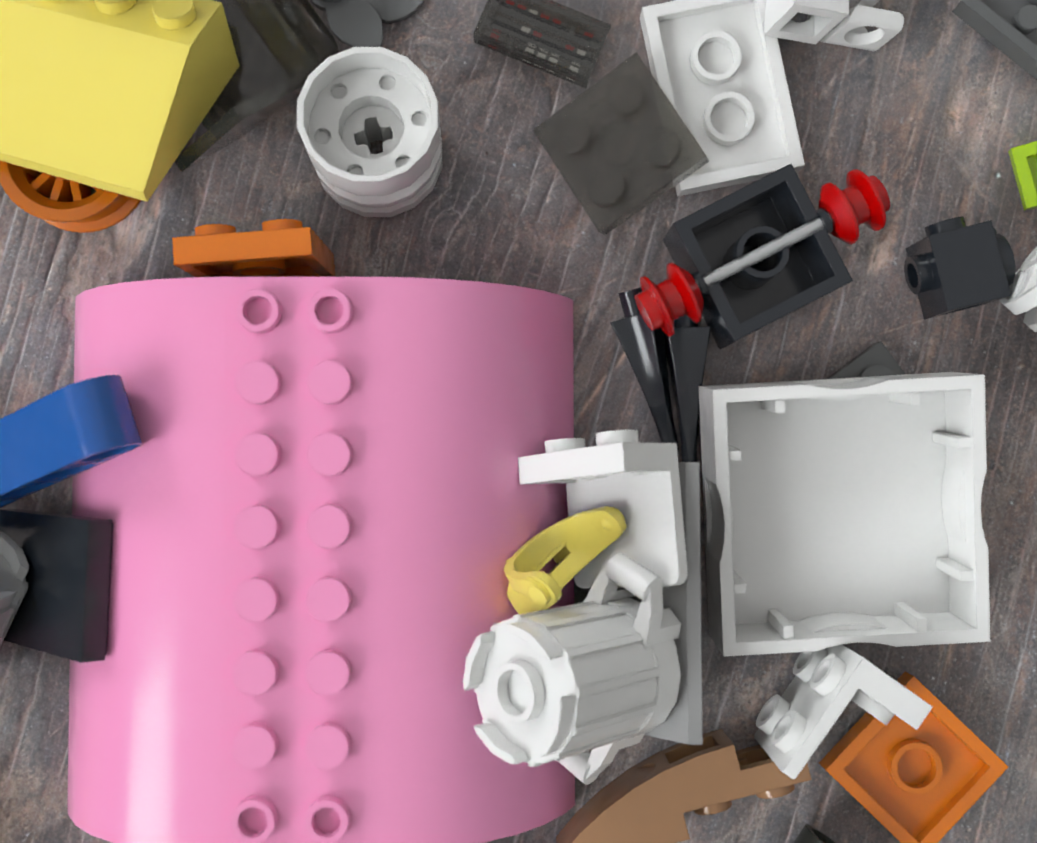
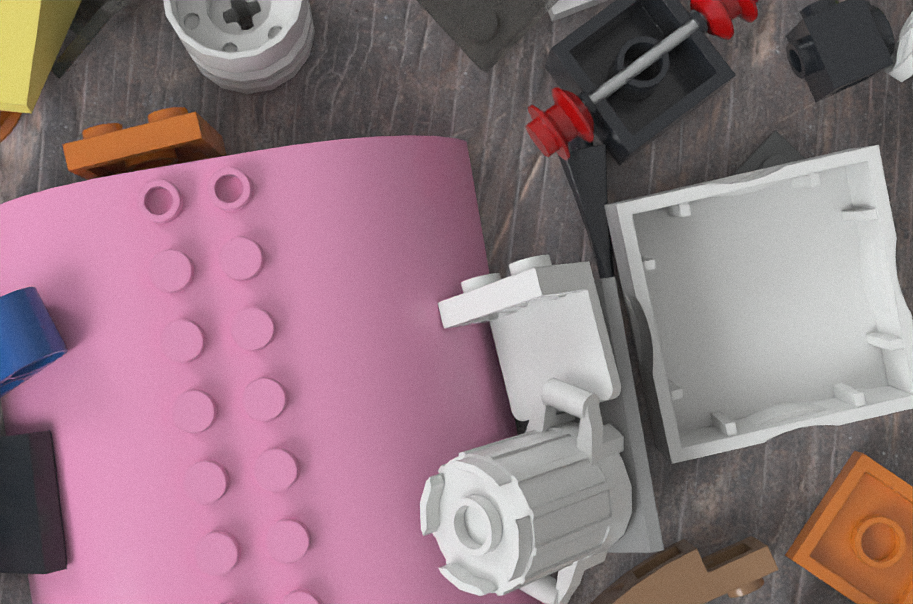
camera: 15 degrees left, 0 degrees up
(572, 546) = (502, 378): light yellow helmet -> none
(648, 360) = (550, 187): black piece -> none
(823, 686) = (774, 475): white bracket -> none

